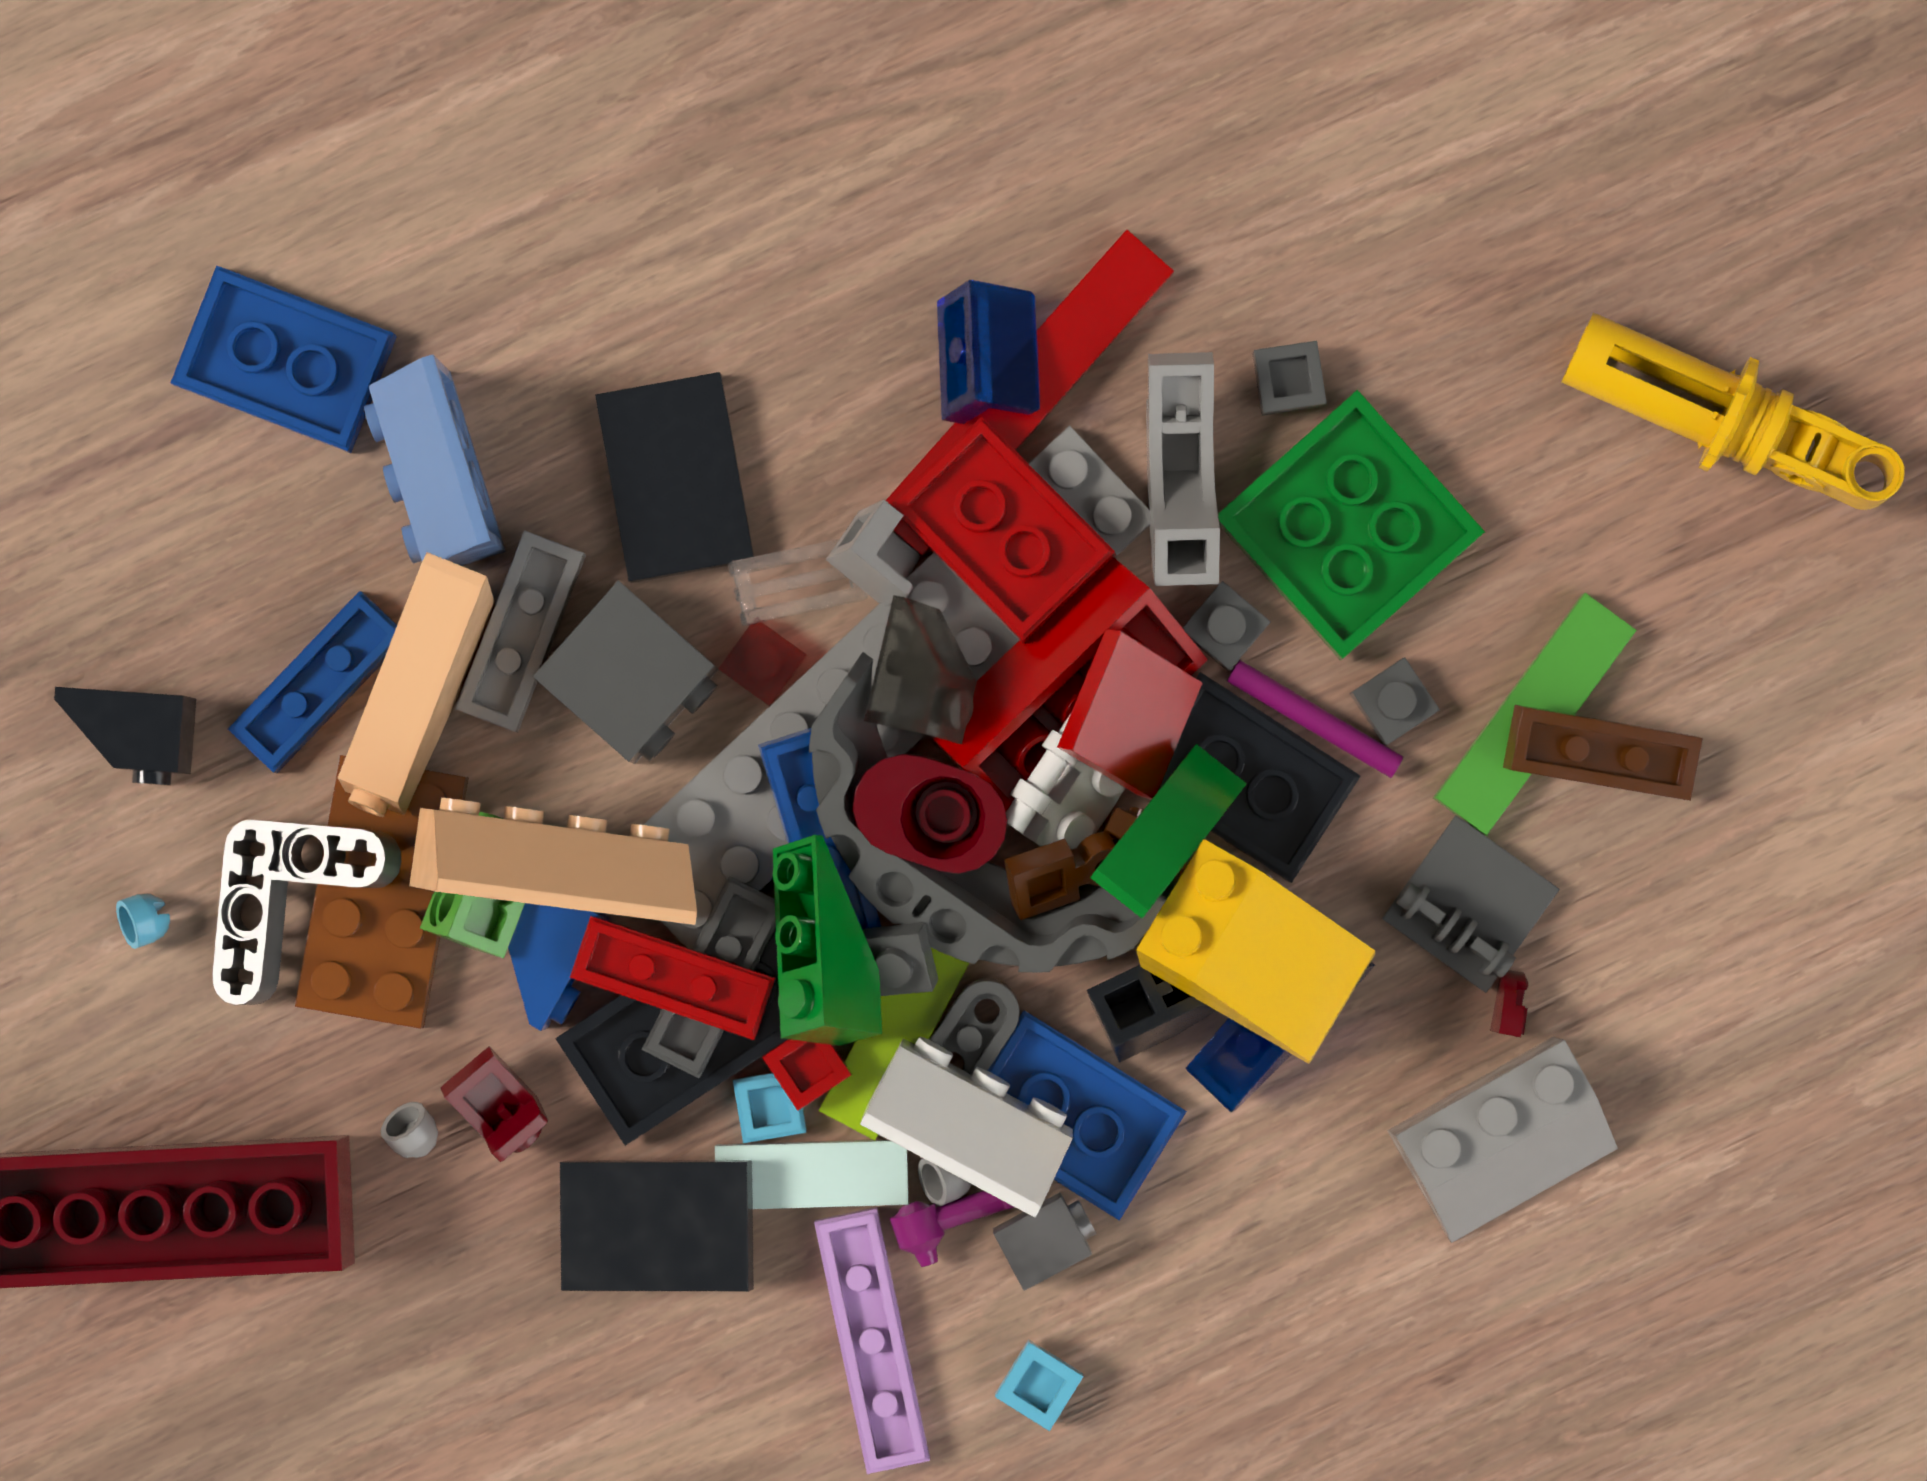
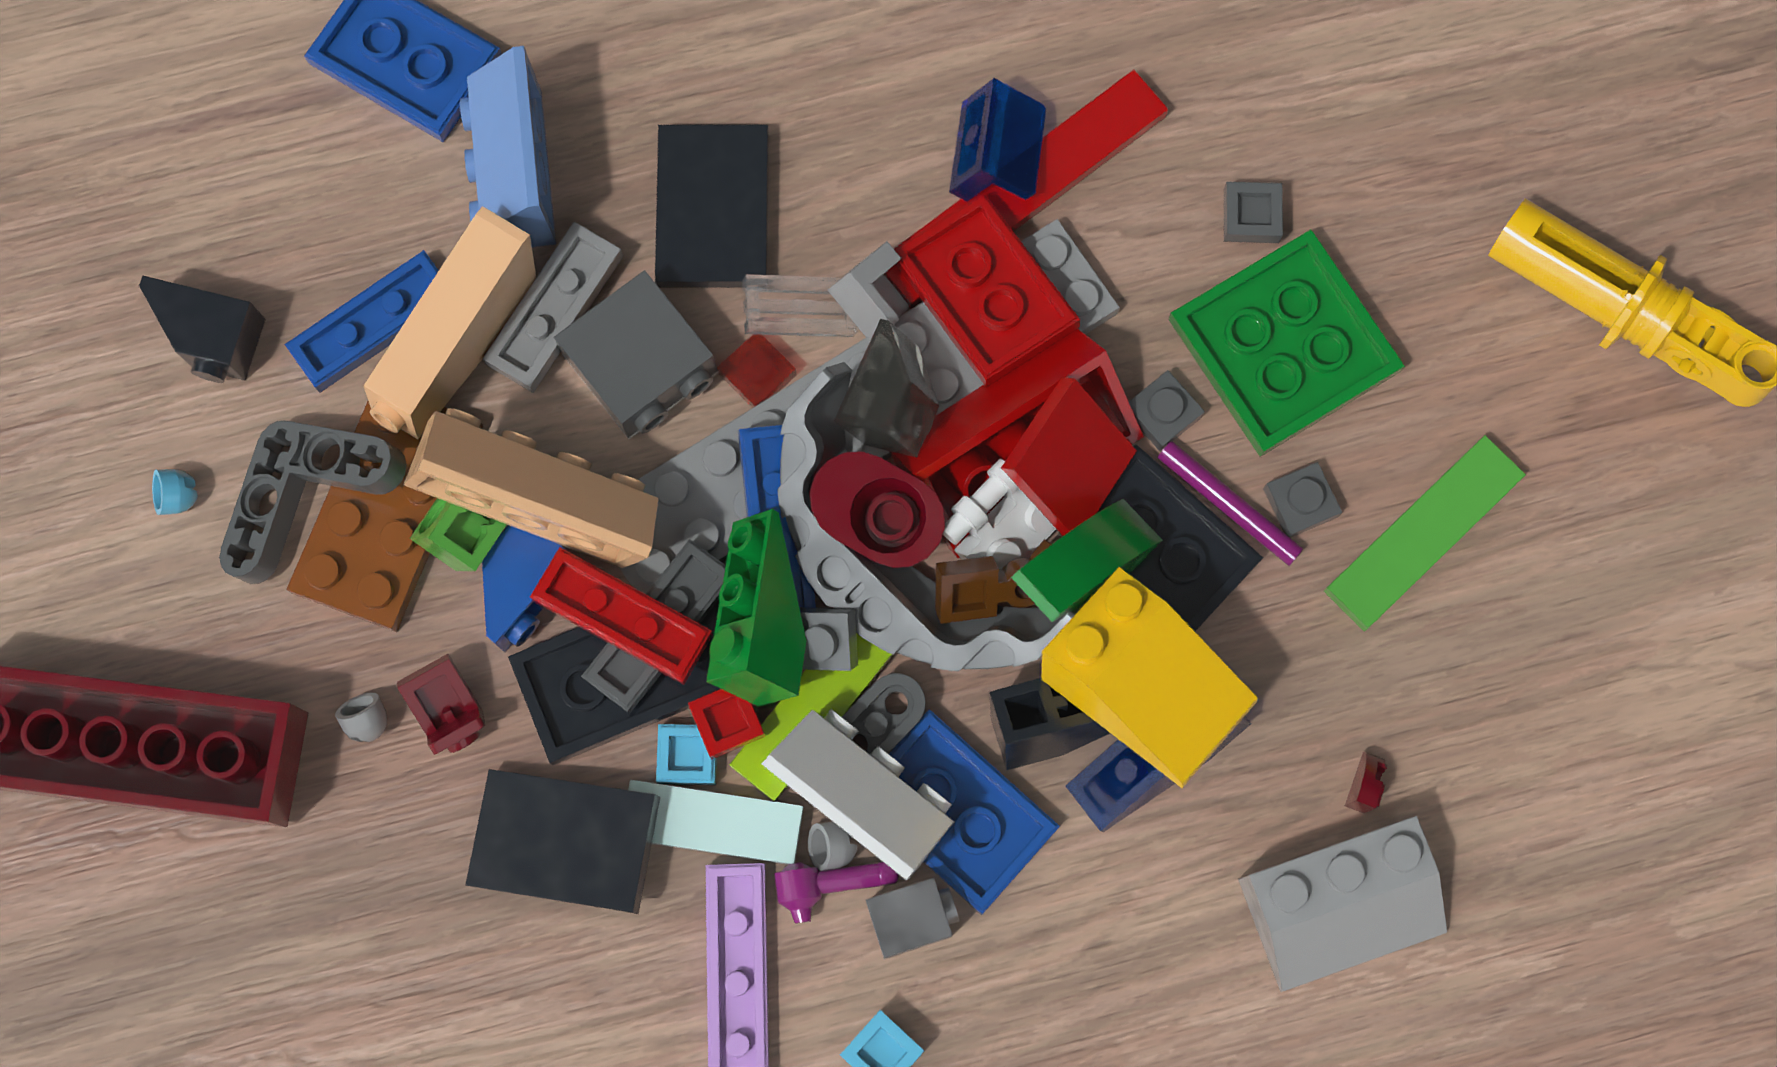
camera: 10 degrees right, 10 degrees down
(1182, 469) = (1149, 262): light grey arch -> none
(1471, 904) = (1344, 688): dark grey hinge -> none
(1602, 752) = (1483, 571): reddish brown plate -> none

